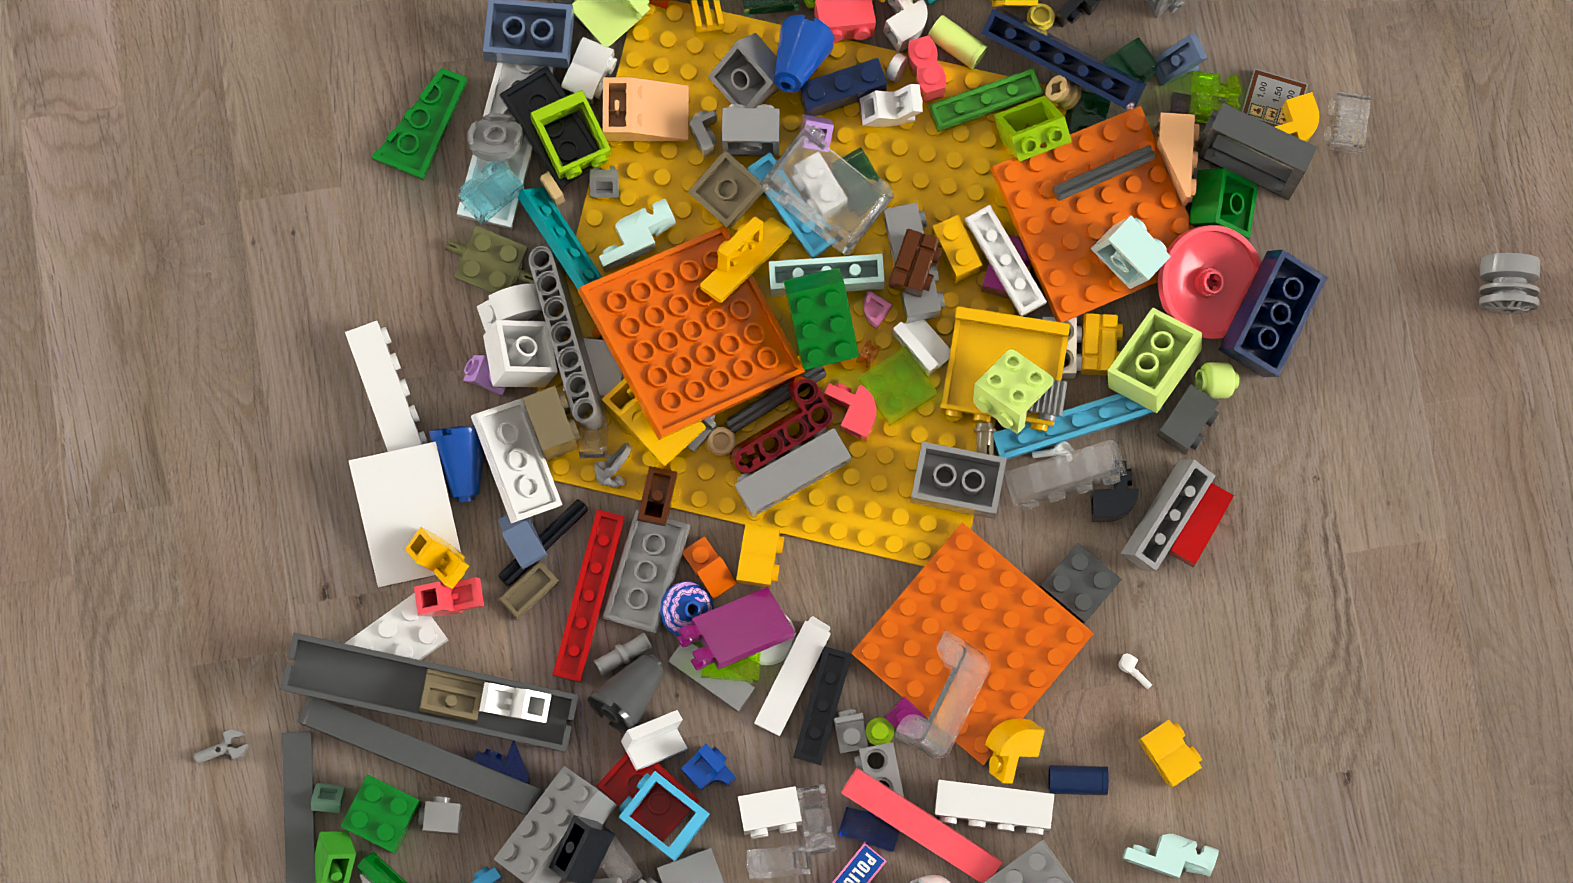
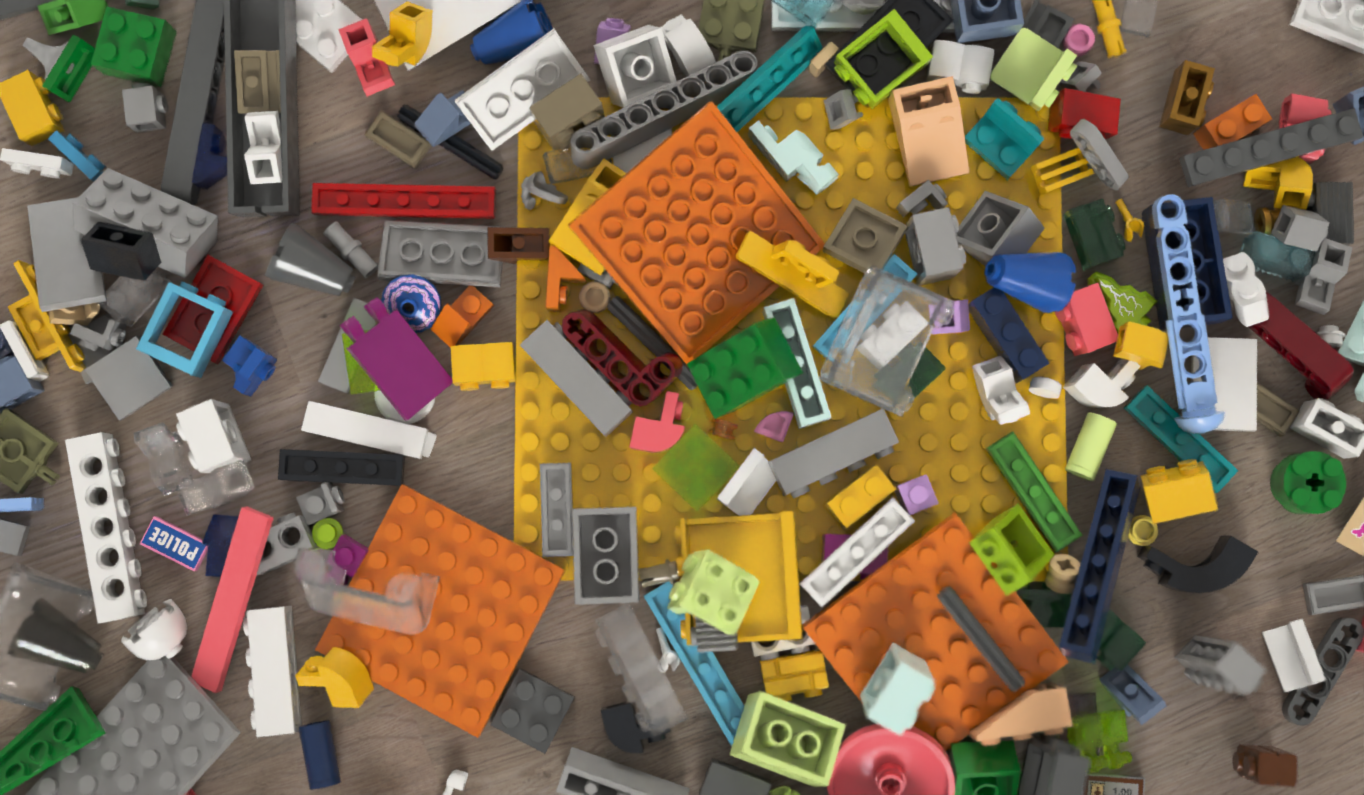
camera: 80 degrees right, 5 degrees up
(654, 740) = (263, 303): white panel -> none
(666, 48) = (1004, 138): none -> teal bracket
(690, 466) = (559, 271): none -> orange slope
(906, 518) = (556, 509): none -> light grey tile
(915, 262) = (829, 454): reddish brown brick -> none
(929, 73) = (1047, 422): coral brick -> none
(965, 199) = (916, 495): none -> lavender brick

